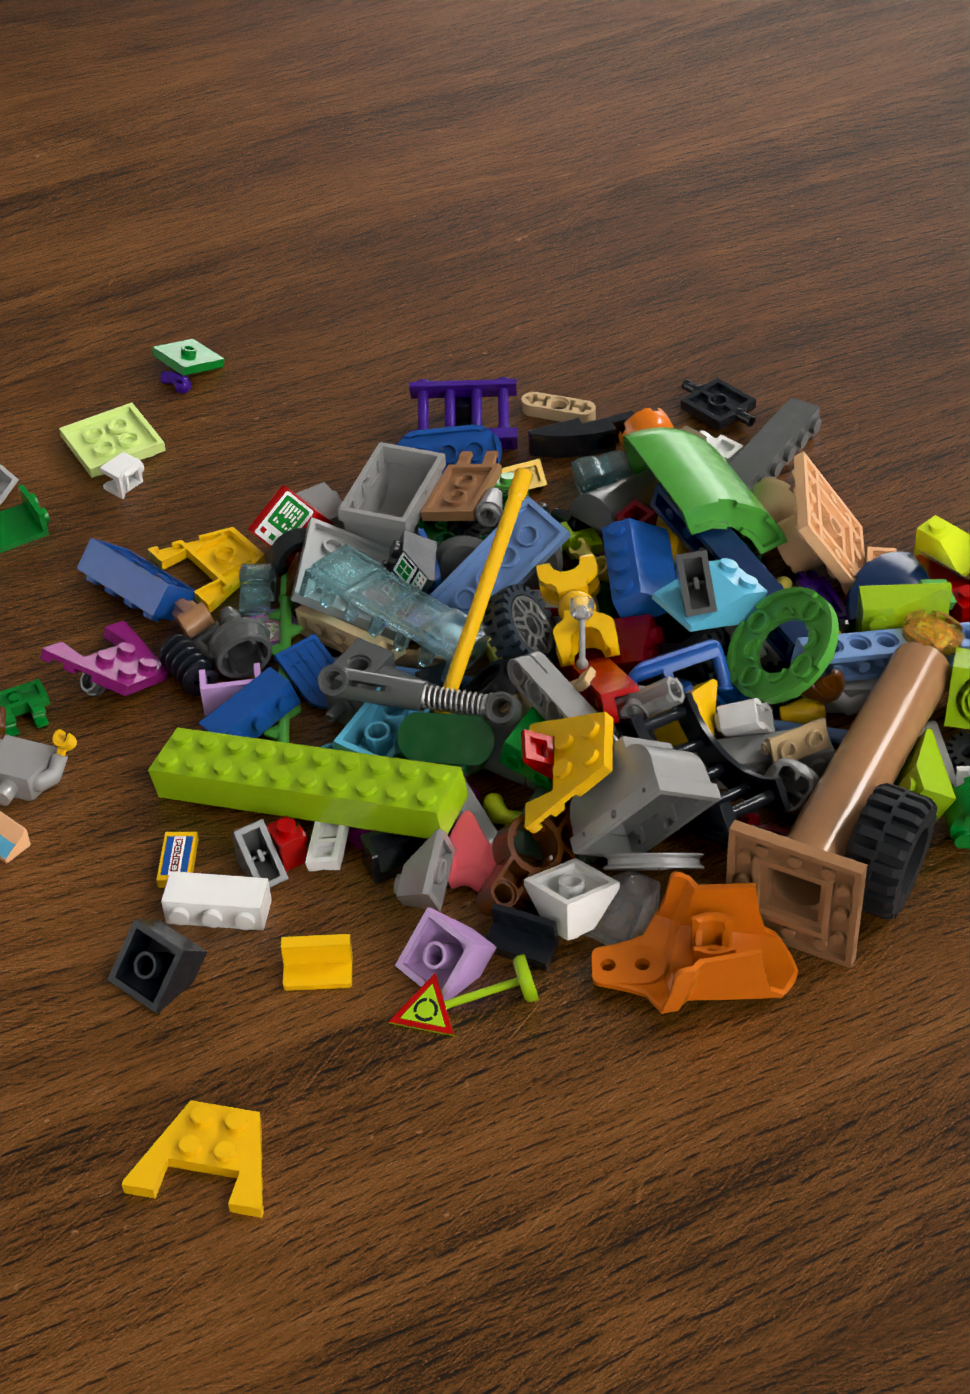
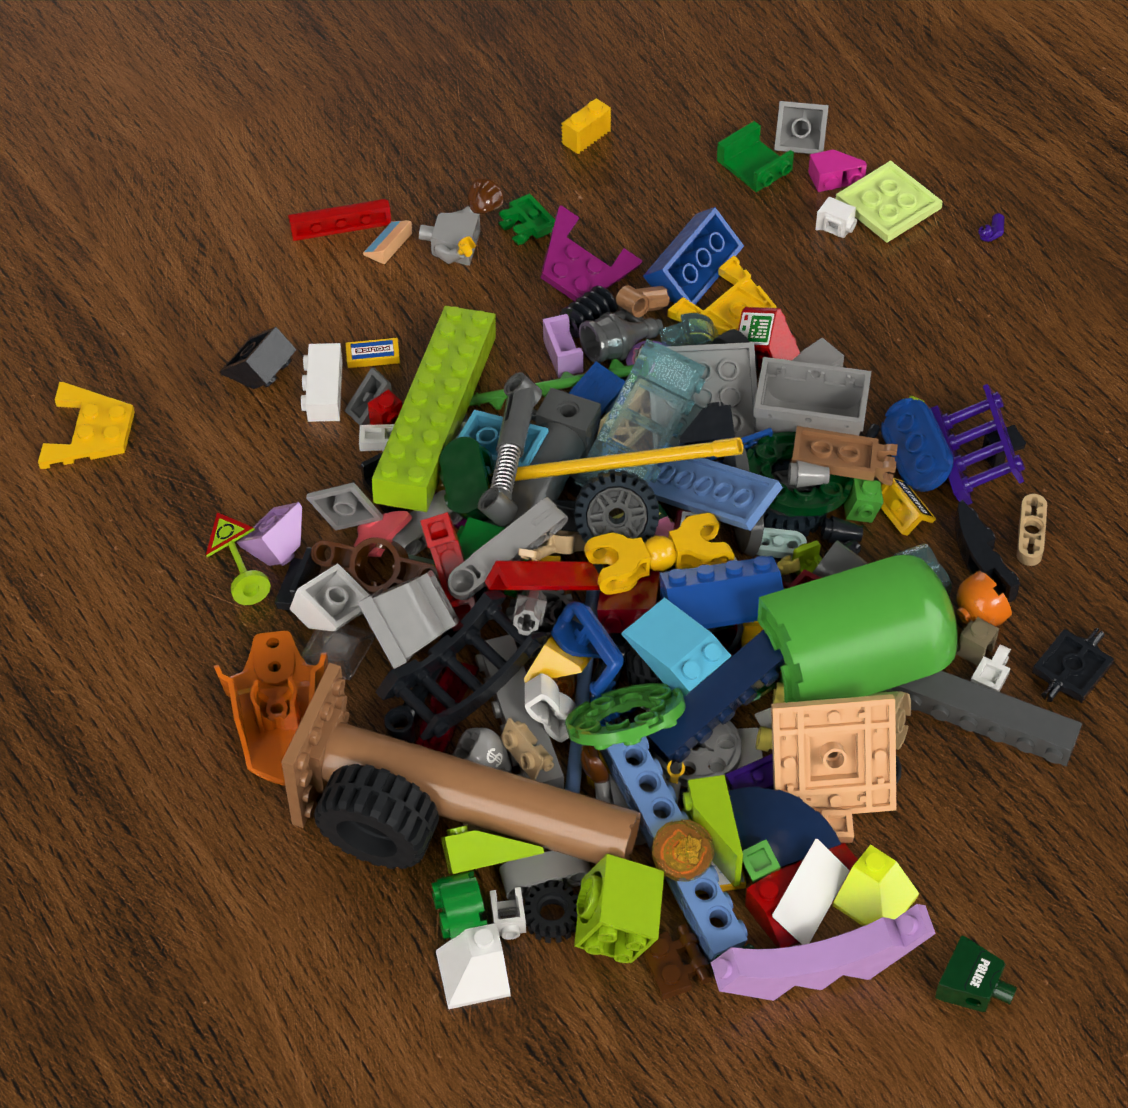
camera: 80 degrees right, 10 degrees up
(53, 468) = (835, 170): none -> dark pink slope
(188, 357) = (1028, 227): plate -> none
(253, 707) = (519, 353): blue brick -> none
(317, 962) = (266, 458): yellow panel -> none
(580, 761) = (437, 557): yellow wing -> none
(581, 610) = (629, 544): hinge -> none
(653, 861) = (360, 641): light grey wedge -> none
(695, 583) = (659, 621): dark grey slope -> none

